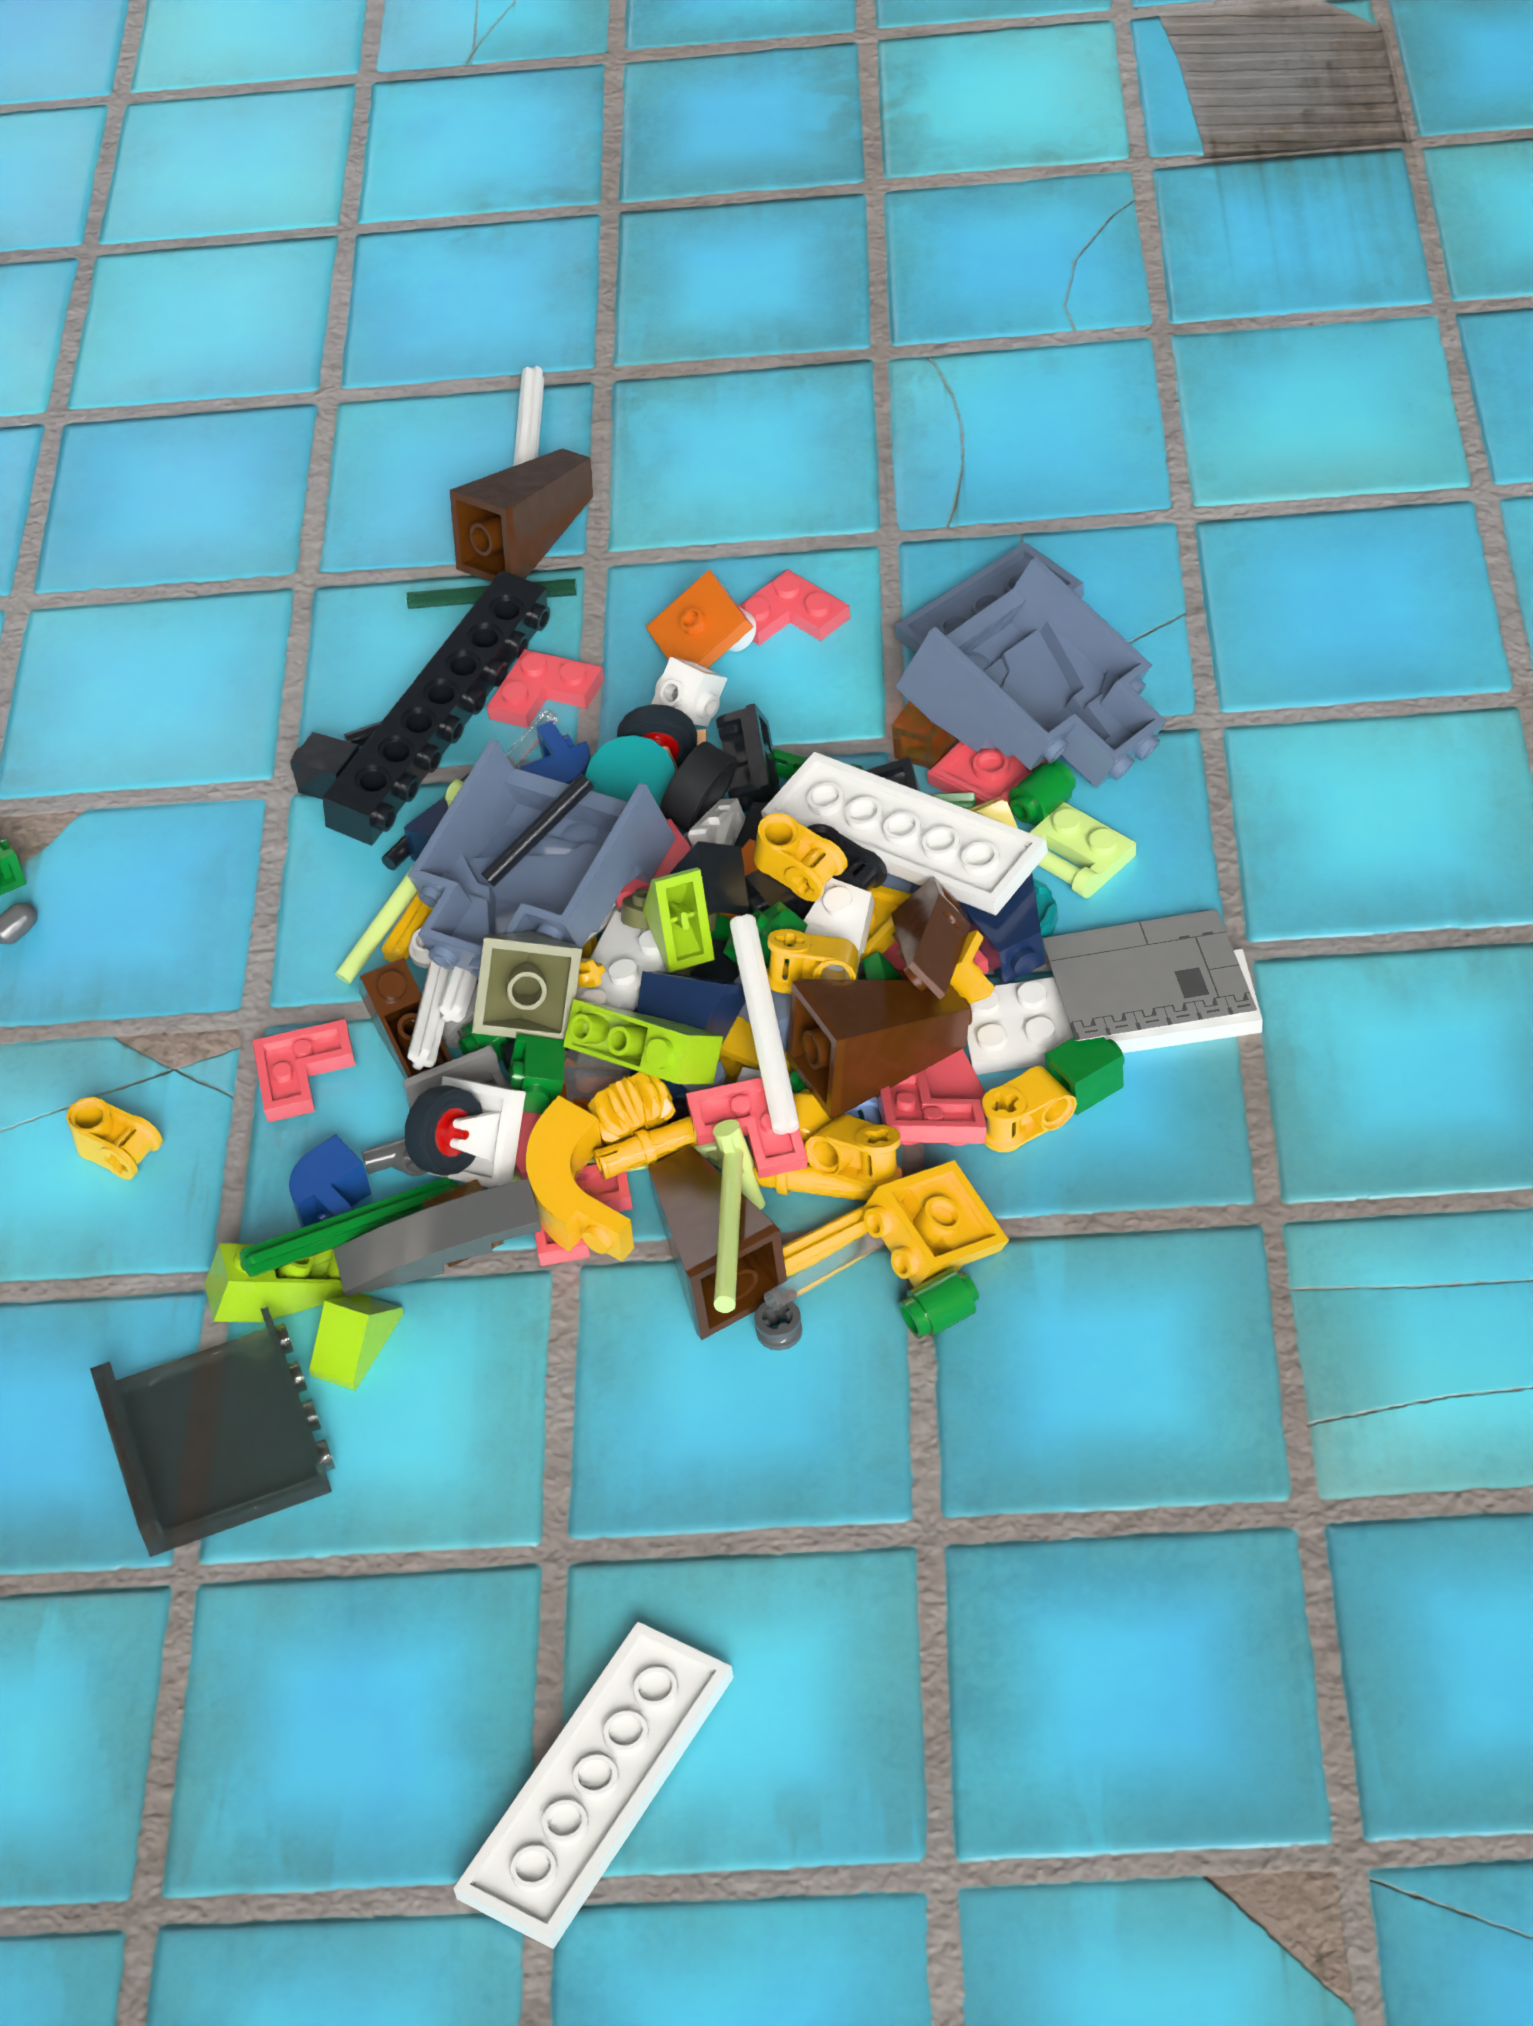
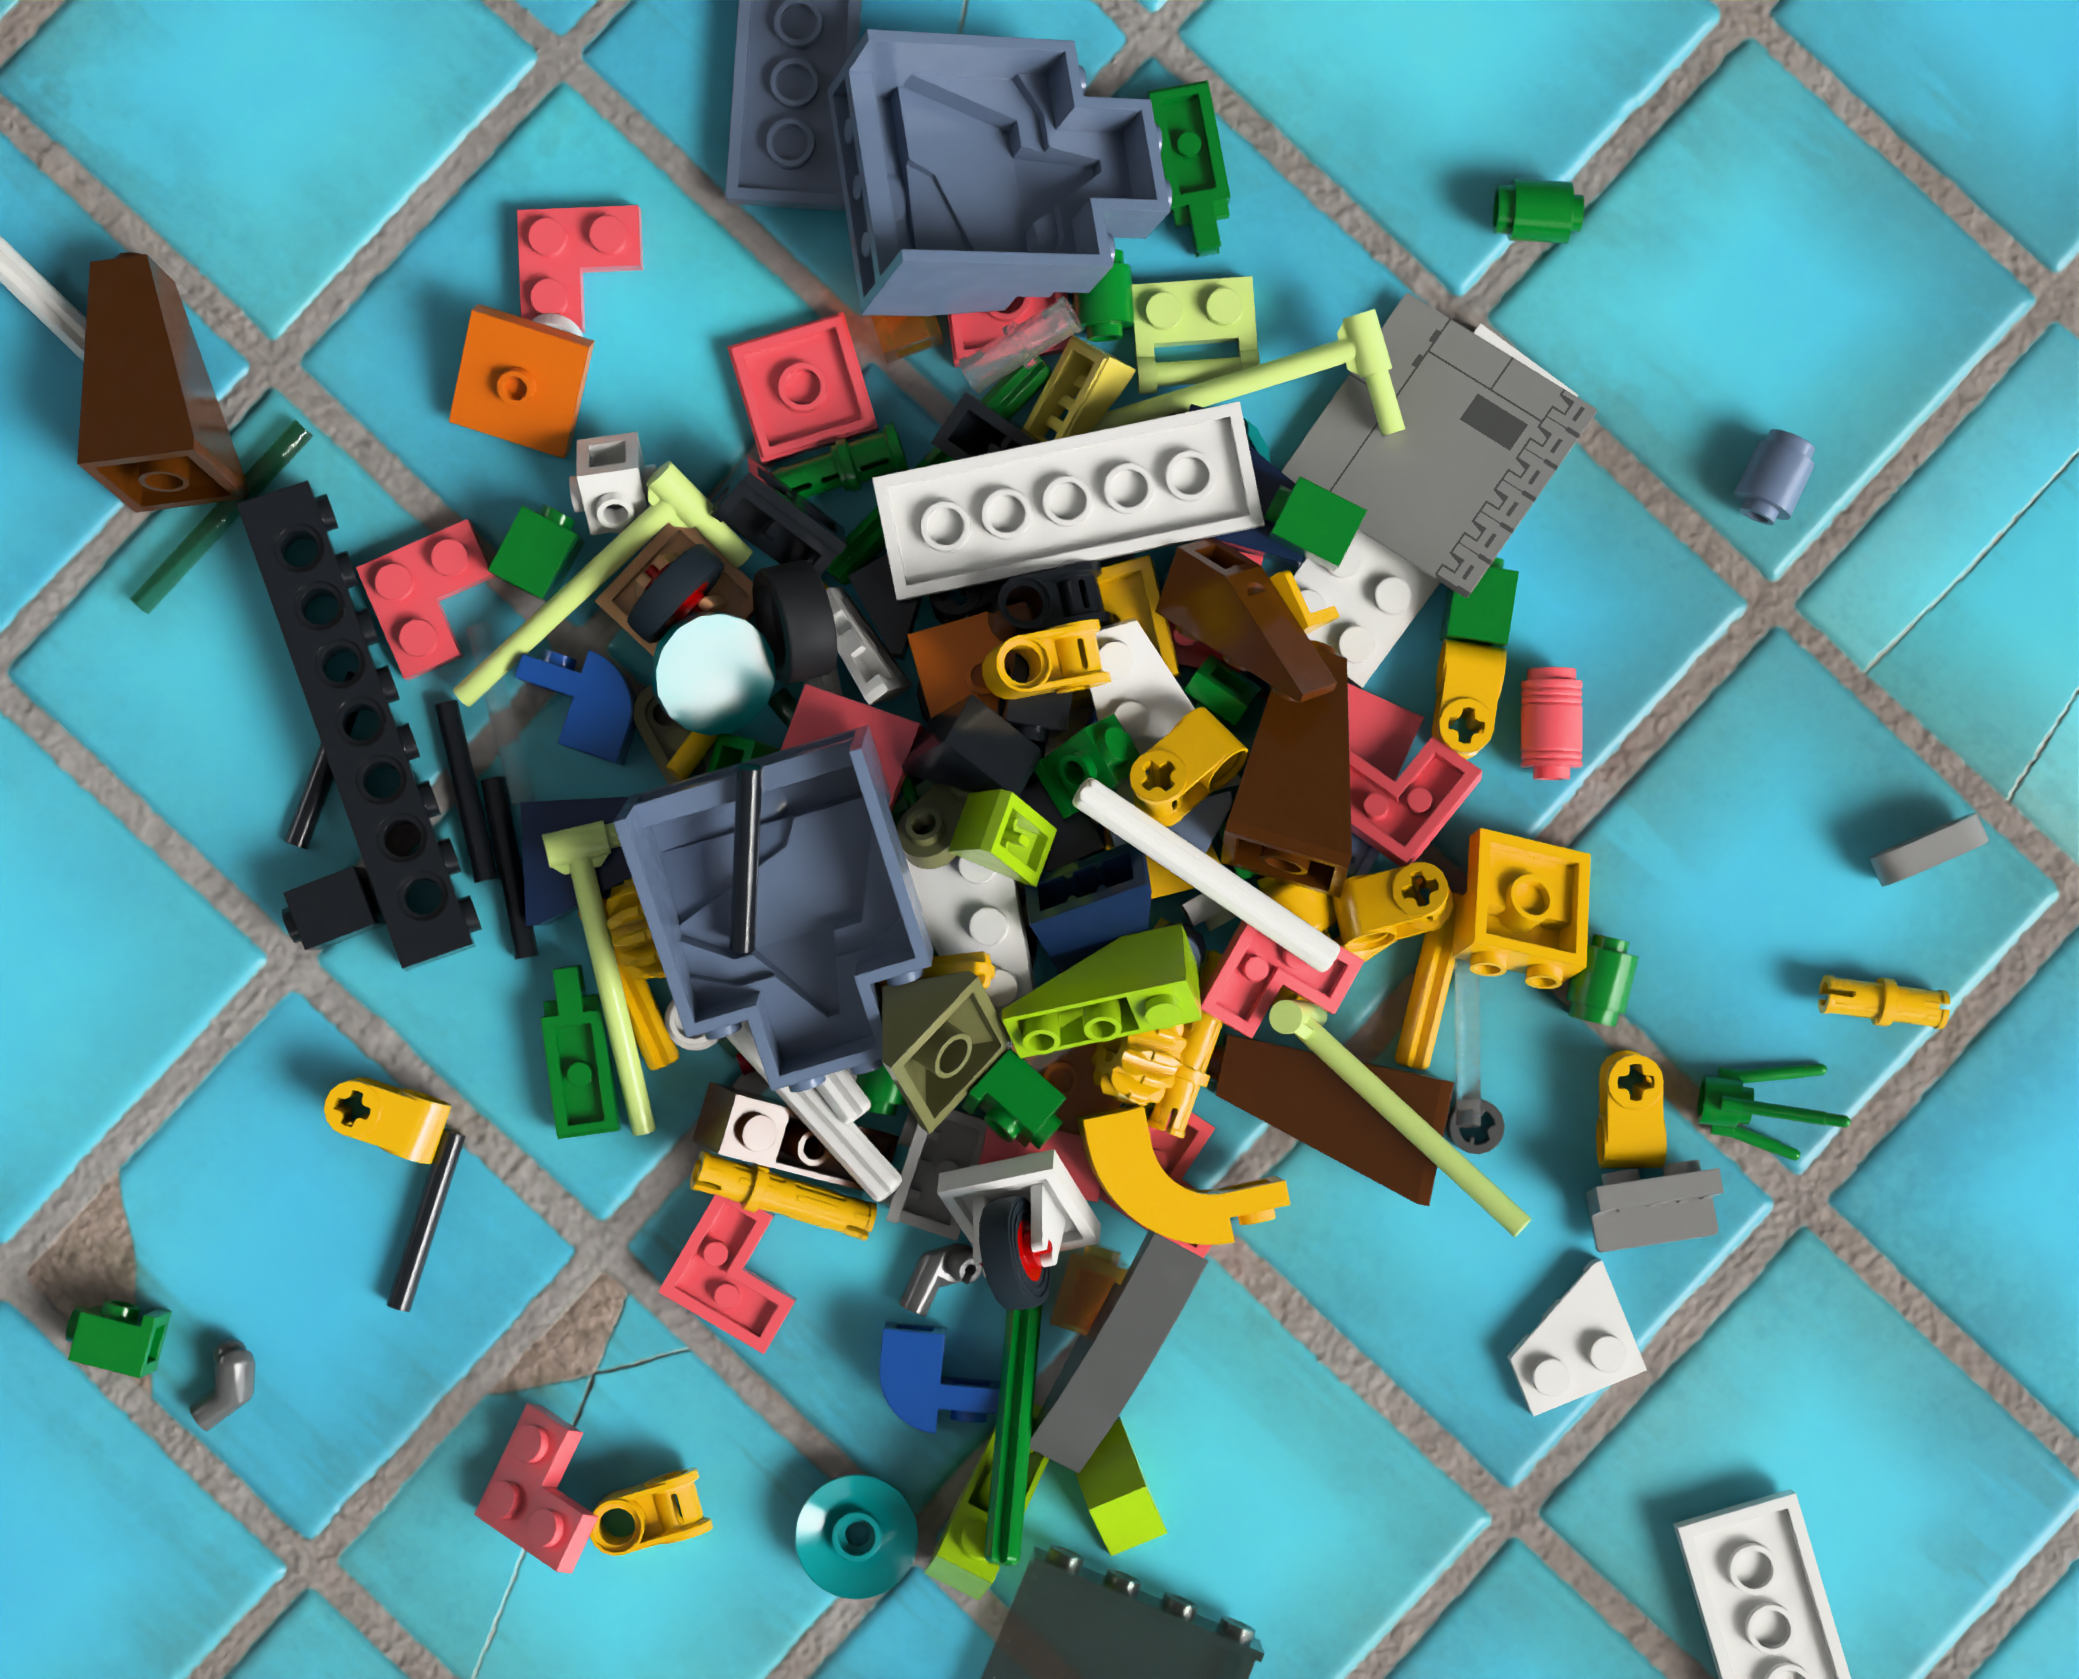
camera: 55 degrees left, 40 degrees up
(66, 1082) = (524, 1493): none -> coral plate
(188, 1232) = (850, 1567): none -> teal dish
(189, 933) = (425, 1221): none -> black bar
(232, 866) = (398, 1121): none -> yellow piece
(346, 920) = (578, 1058): none -> green hinge
(361, 1028) = (769, 1191): none -> yellow pin
(456, 771) = (465, 791): none -> black bar
(612, 696) = (537, 552): none -> green brick
(699, 1486) = (1576, 1345): none -> white wing
(704, 707) = (672, 501): none -> yellowish green bar
(832, 1433) = (1656, 1209): none -> light grey bracket
(838, 729) = (803, 388): none -> coral tile
(874, 1384) = (1630, 1125): none -> yellow piece
(945, 1429) = (1726, 1103): none -> green plant
(969, 775) = (1020, 344): none -> clear pin
(1023, 925) = (1314, 522): none -> green brick
(1061, 1155) = (1551, 722): none -> coral head
(1101, 1453) = (1883, 1002): none -> yellow pin
(1149, 895) = (1358, 346): none -> yellowish green bar
(1160, 775) = (1193, 161): none -> green hinge
(1222, 1392) = (1929, 849): none -> light grey beam
(1335, 919) = (1537, 211): none -> green brick
(1337, 1137) = (1775, 477): none -> sand blue brick

